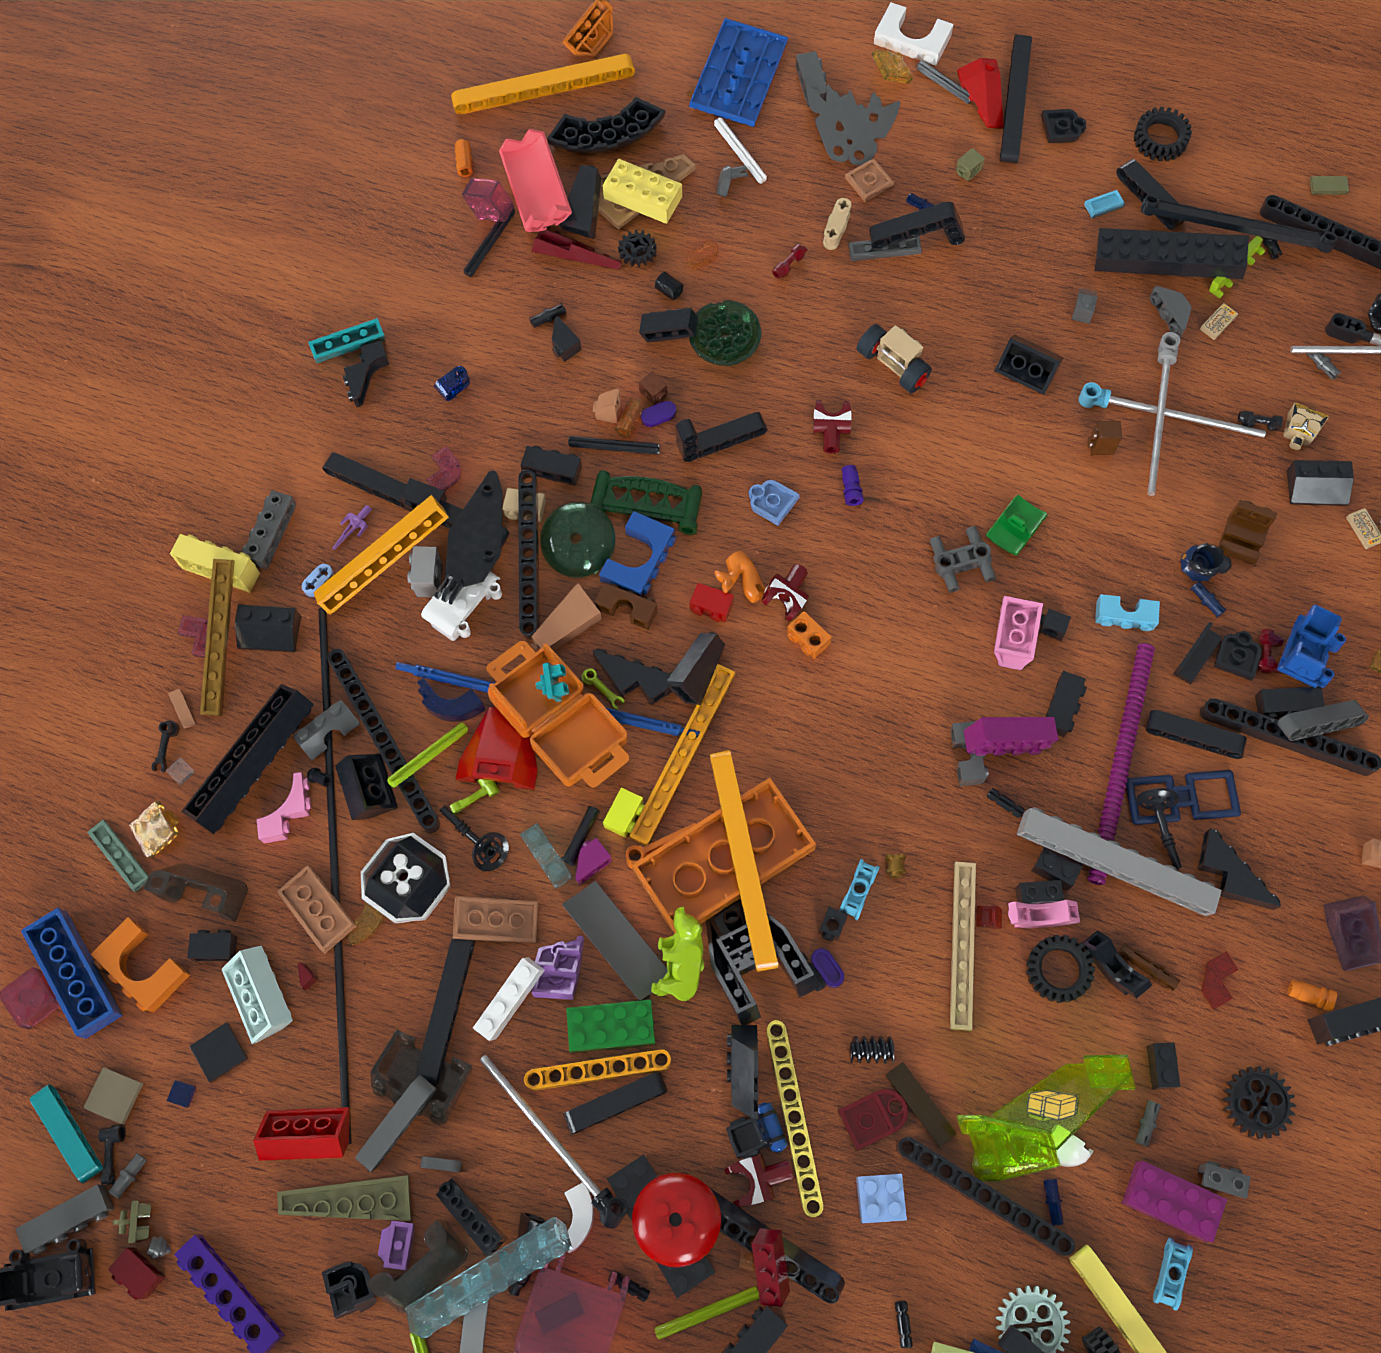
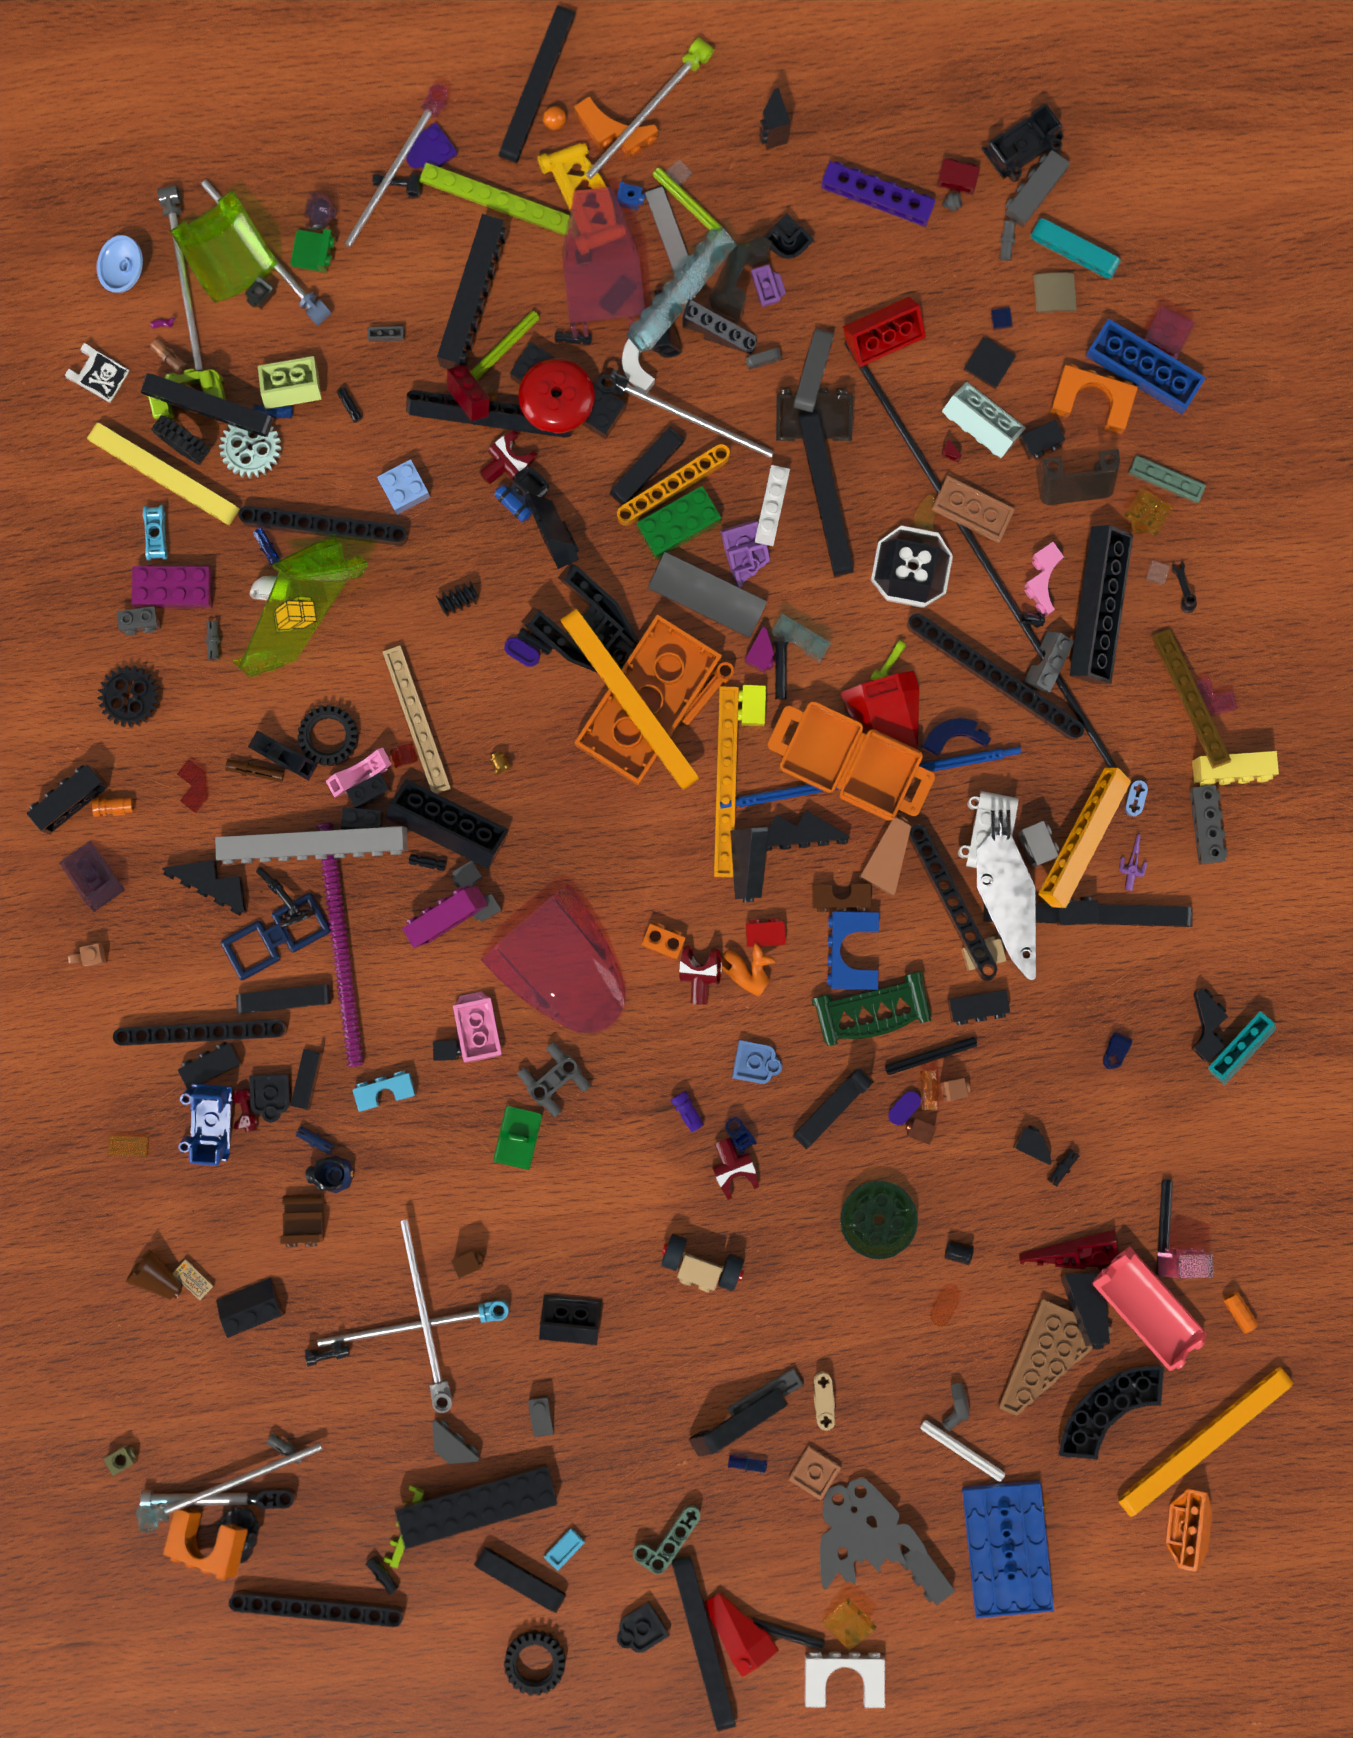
camera: 150 degrees right, 15 degrees up
(110, 1136) = (1038, 263): black brick -> none
(135, 1232) = (977, 204): olive hips -> none
(182, 708) = (1190, 628): nougat piece -> none
(267, 628) = (1154, 731): black slope -> none
(361, 1200) = (809, 307): olive wing -> none
(365, 786) = (987, 629): black slope -> none
(427, 755) = (946, 678): lime axle -> none
(449, 470) = (1071, 958): clear pink plate -> none
(480, 846) = (857, 623): black dish -> none
(495, 919) = (816, 564): nougat tile -> none
(550, 682) = (868, 781): teal hips -> none
(595, 545) = (912, 957): clear green brick -> none
(602, 688) = (829, 810): lime brick -> none
(637, 248) = (998, 1283): black gear -> none
(642, 191) = (1035, 1345): light yellow brick -> none
(668, 325) = (937, 1203): black brick -> none
(683, 958) = (644, 598): lime animal -> none
(783, 269) = (855, 1323): dark red piece -> none
(800, 1127) = (494, 510): light yellow beam -> none
(813, 447) = (740, 1135): none -> clear blue piece
(836, 916) = (536, 696): black brick -> none
(864, 877) = (524, 739): medium azure piece -> none
(871, 1117) = (436, 547): dark red tile -> none
(913, 654) = (561, 965): none -> clear pink windscreen
(920, 1104) = (401, 575): dark brown tile -> none
(970, 164) = (718, 1533): olive brick -> none
(973, 825) = (447, 823): none -> black brick
(1025, 166) = (670, 1537): none -> sand green beam
(1065, 701) = (409, 976): black brick -> none
(1163, 1066) = (215, 691): black brick -> none
(1219, 321) = (402, 1454): tan tile -> none
(1303, 425) = (284, 1365): tan torso -> none
(1323, 720) = (176, 1056): dark grey beam -> none
(1324, 242) = (420, 1573): black piece -> none
(1329, 185) = (343, 1674): olive tile -> none

